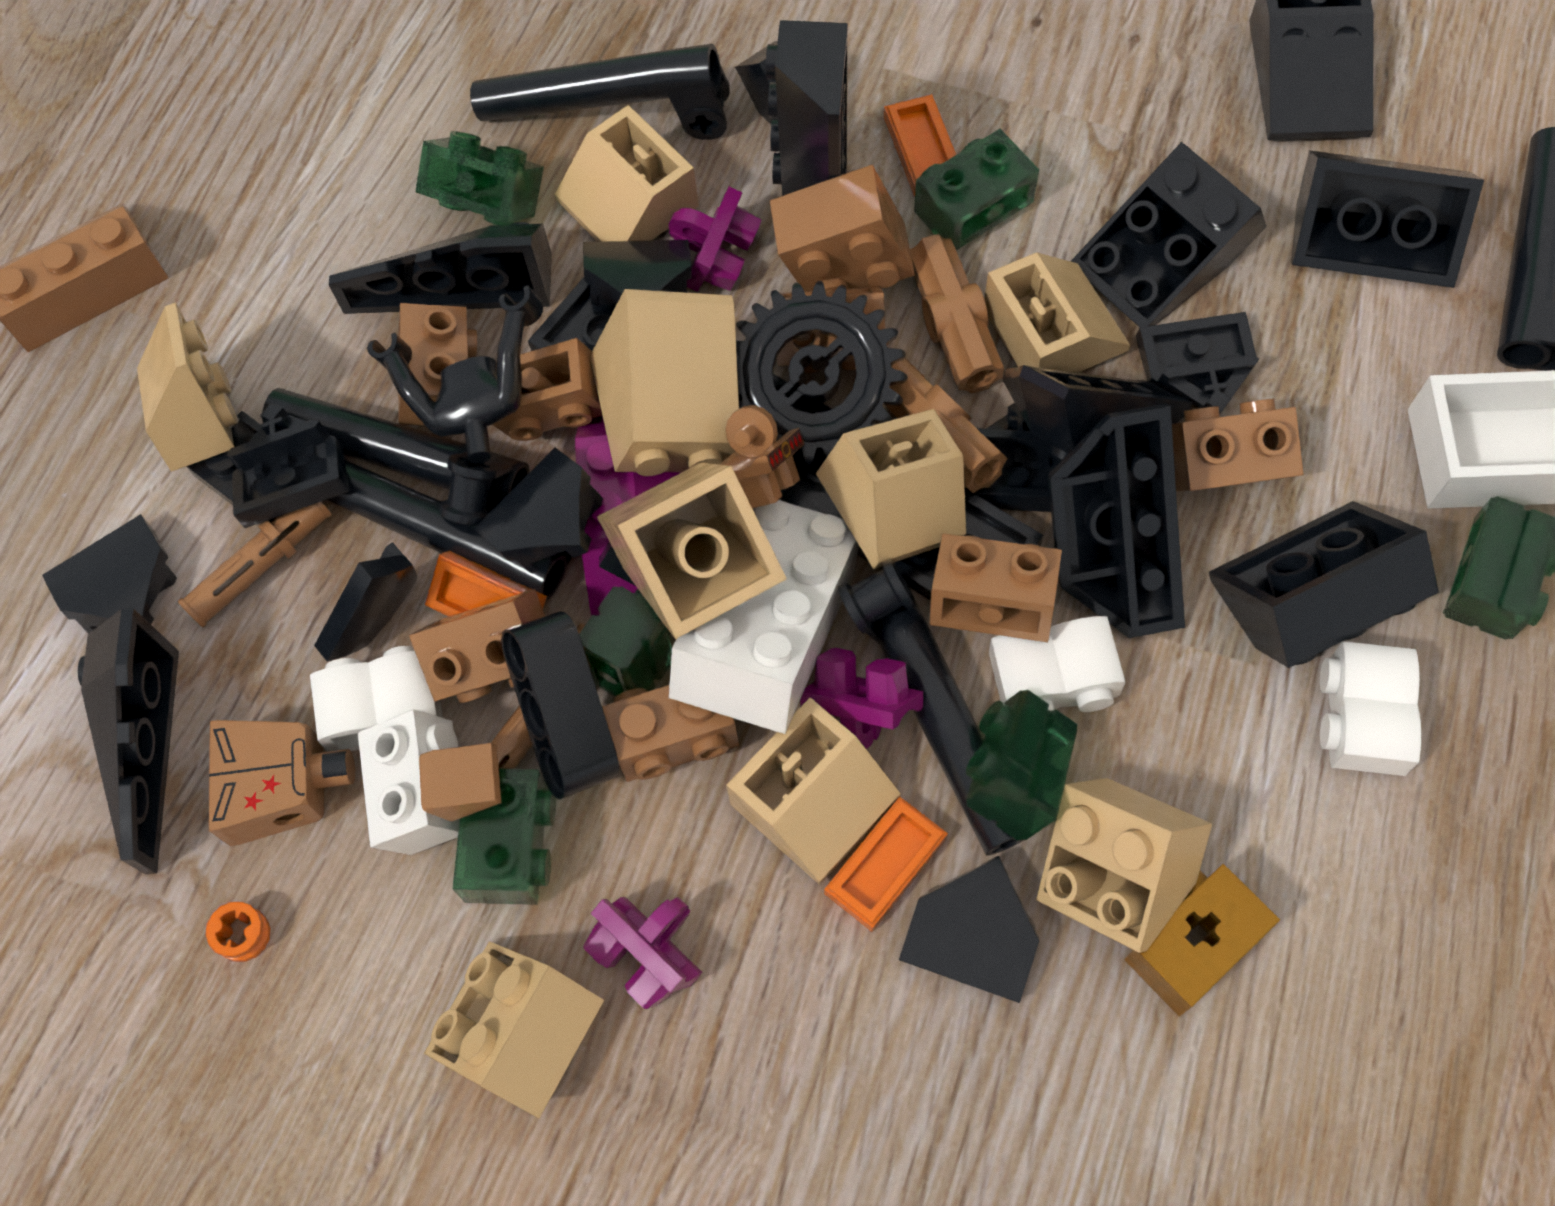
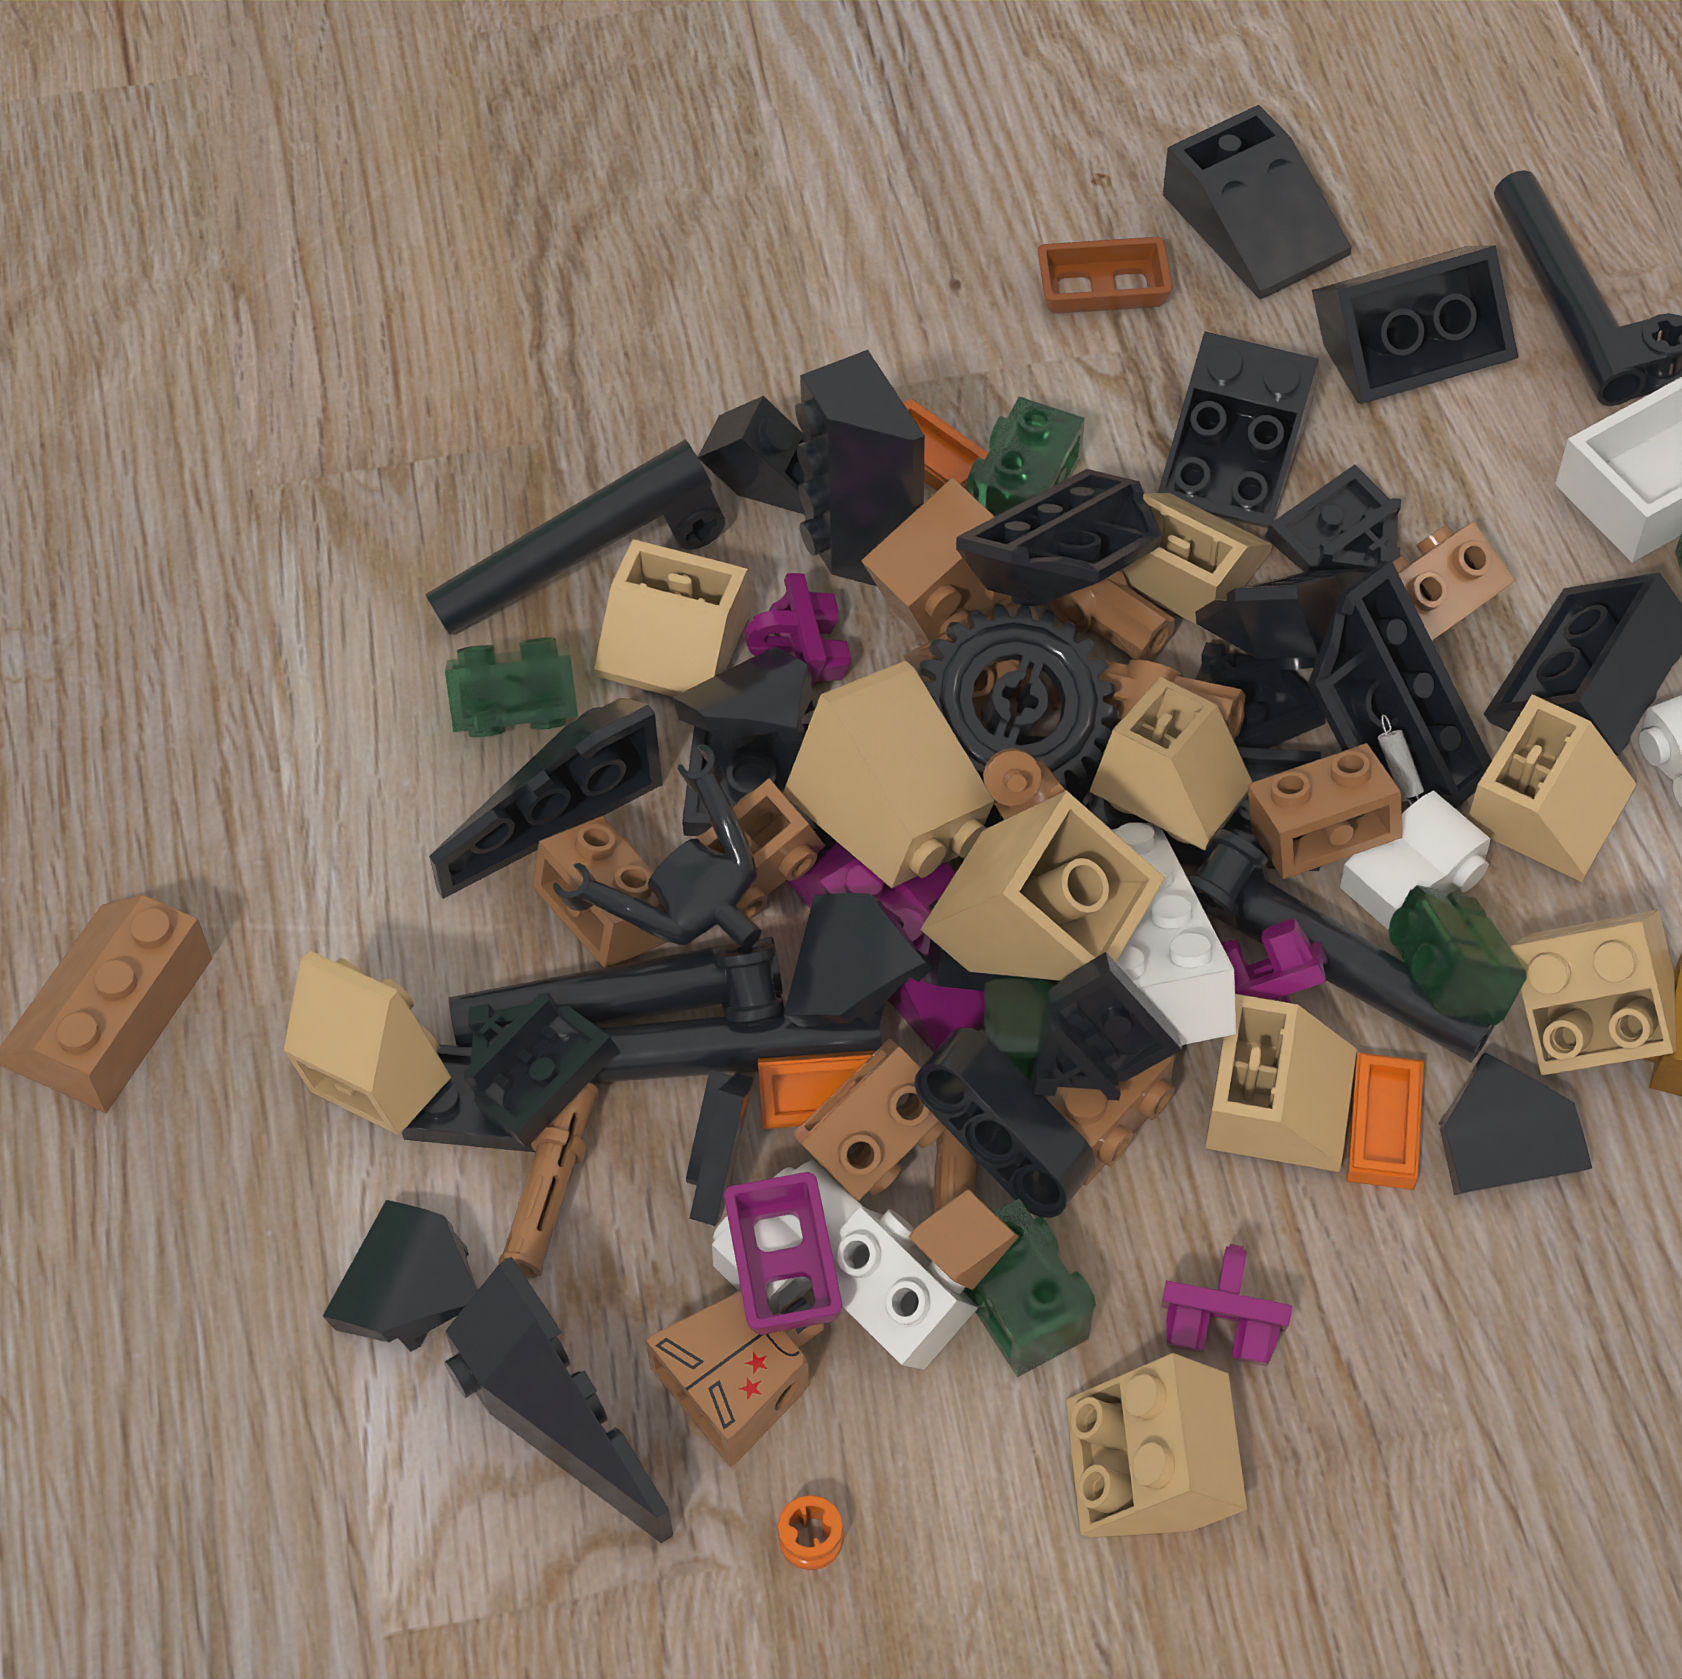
camera: 35 degrees left, 10 degrees down
(315, 711) = (811, 1259): none -> magenta piece
(660, 676) = (1099, 1032): none -> black slope
(930, 254) = (1062, 538): none -> black wedge
(1094, 579) = (1400, 763): none -> white piece
(1159, 54) = (1100, 264): none -> dark orange piece
(1211, 667) = (1552, 790): none -> tan slope

